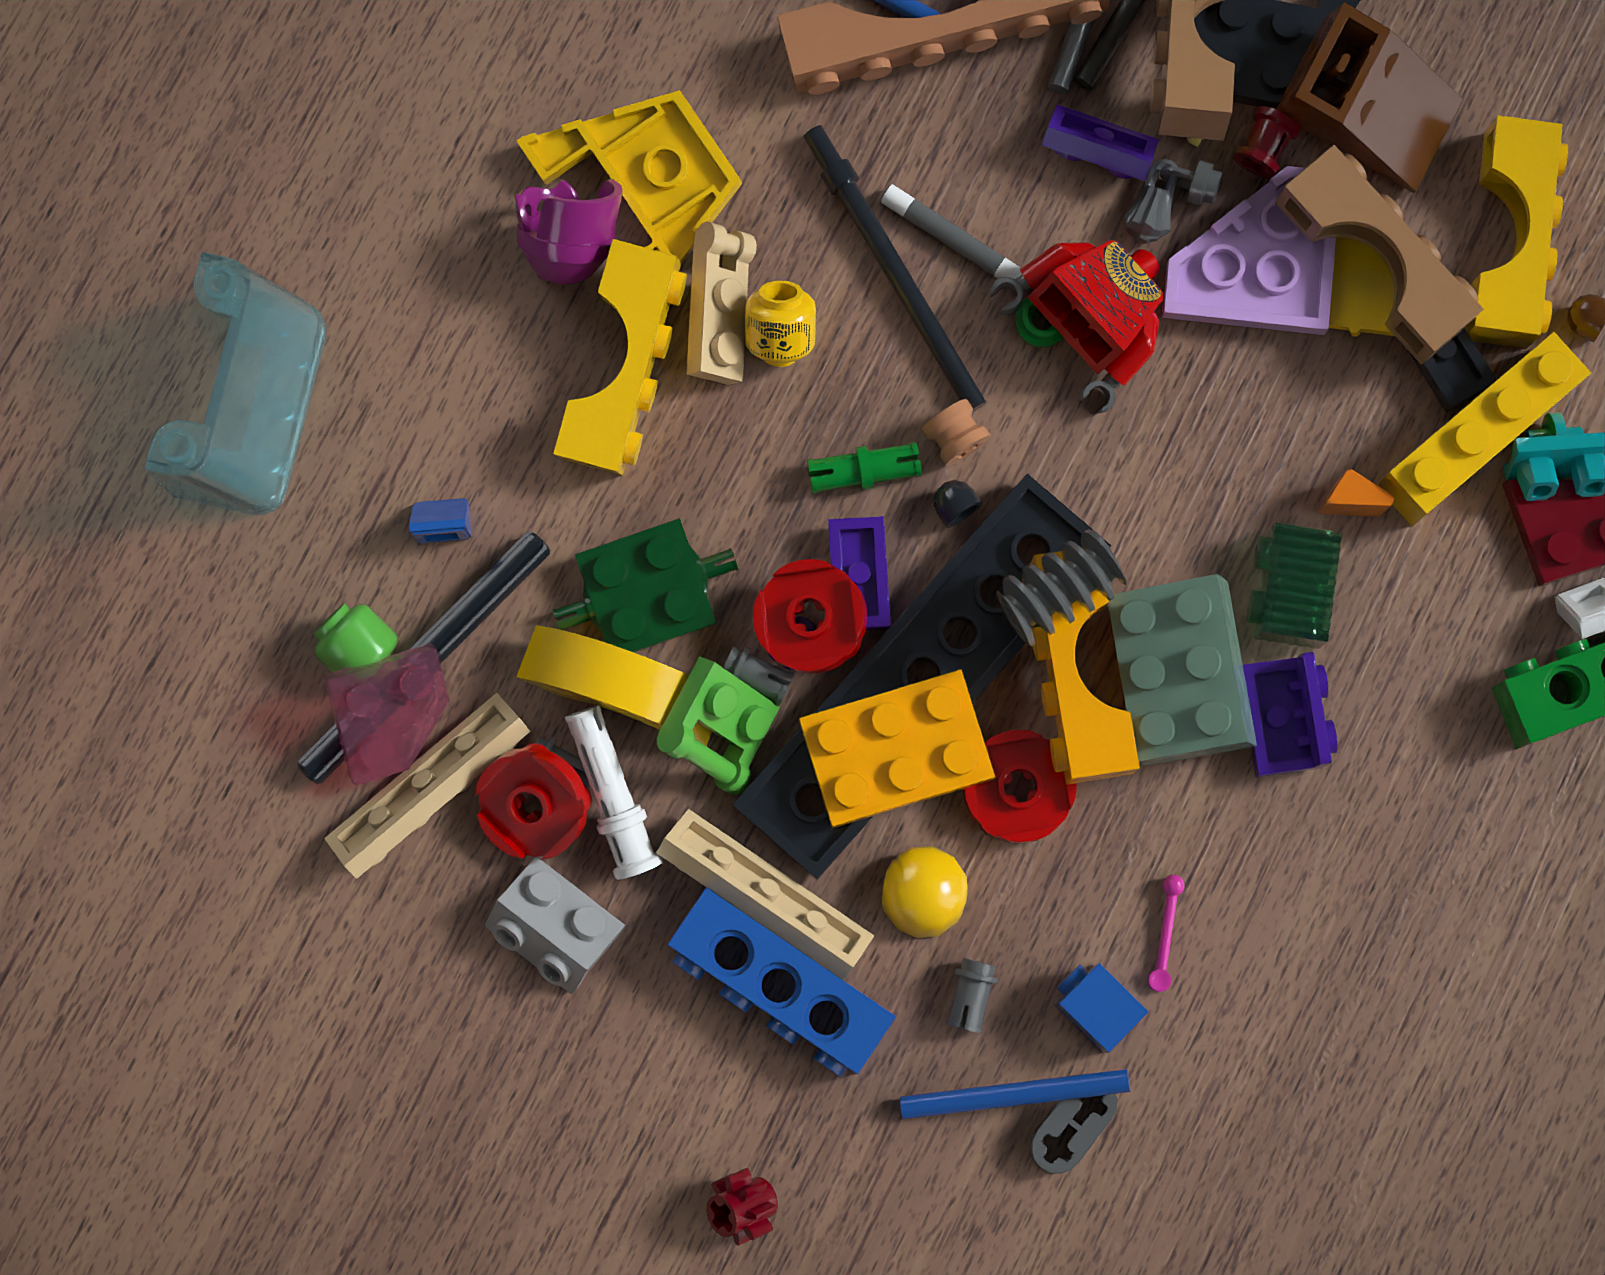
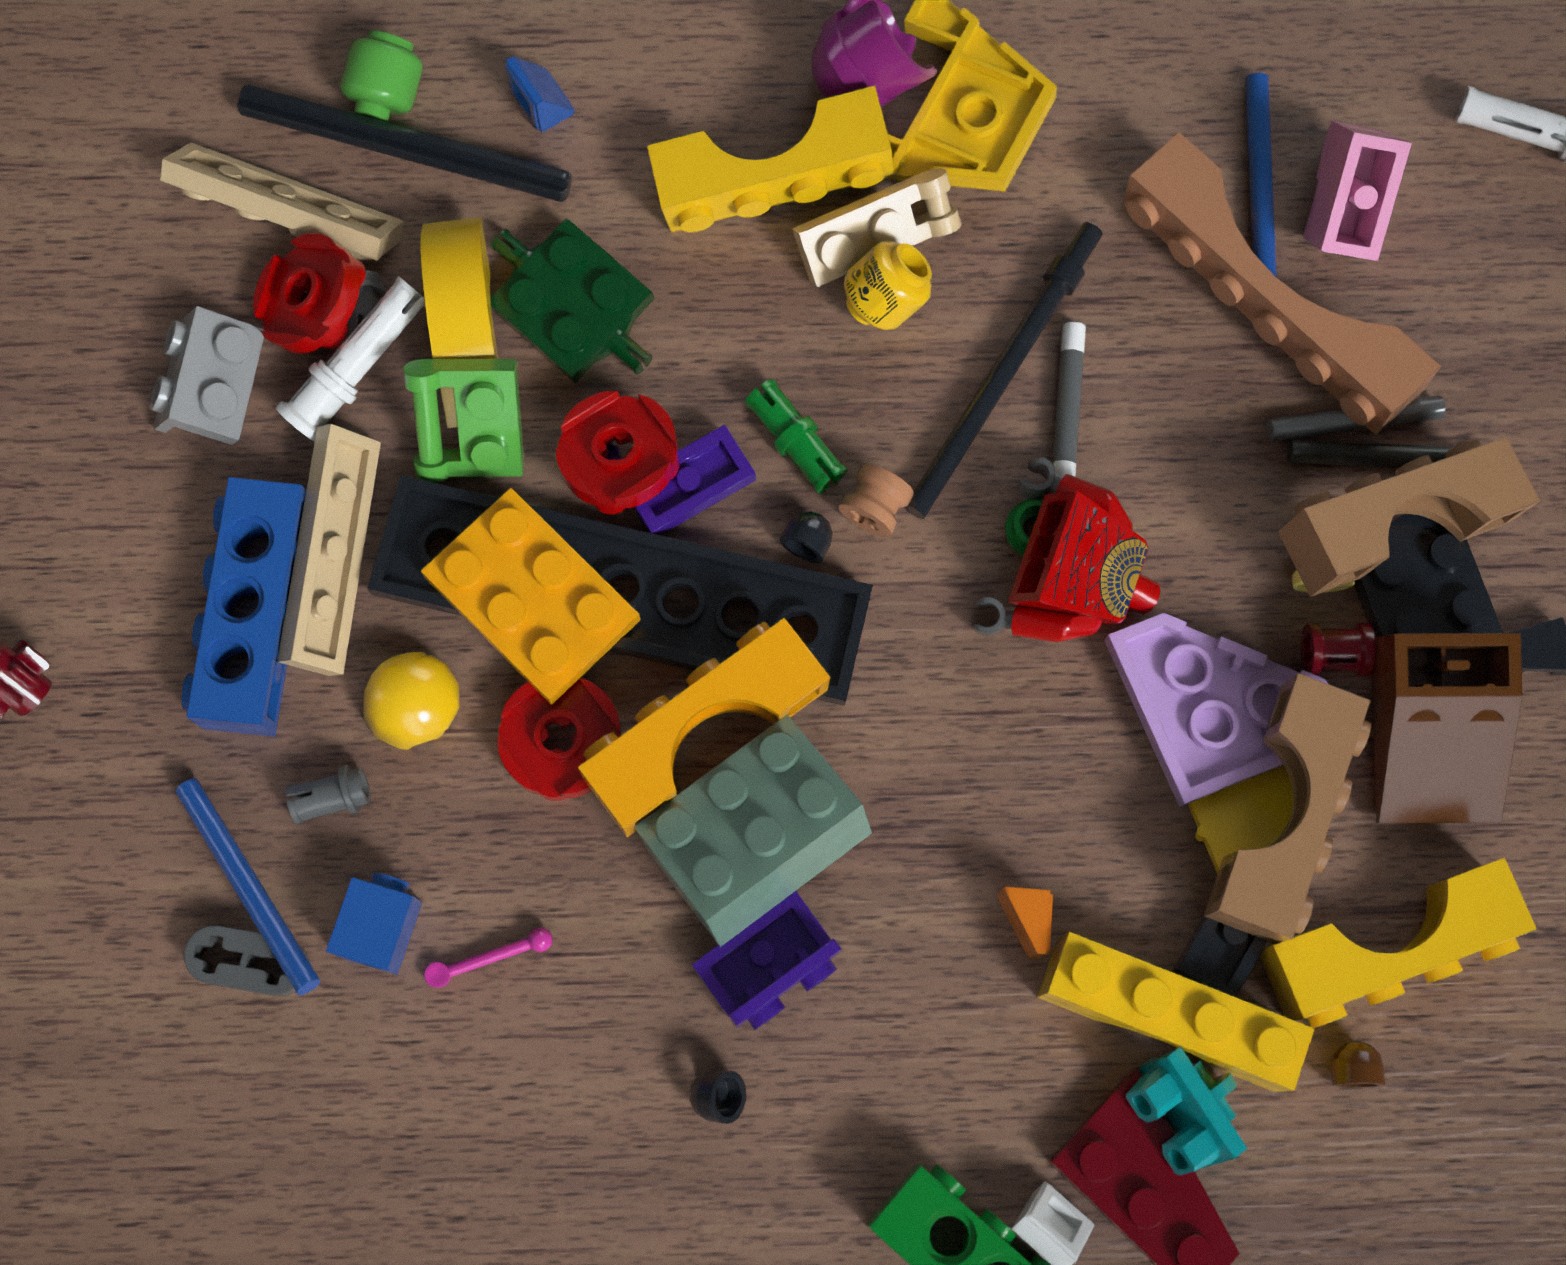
camera: 60 degrees right, 5 degrees down
(386, 711) = (331, 127): clear pink plate -> none
(759, 674) = (541, 436): dark grey pin -> none
(1060, 585) = (754, 649): dark grey piece -> none
(1091, 139) = (1240, 491): dark purple plate -> none
(1151, 212) = (1199, 576): dark grey piece -> none
(1295, 585) = (906, 903): clear green brick -> none
(1368, 808) = (718, 1096): none -> black hinge

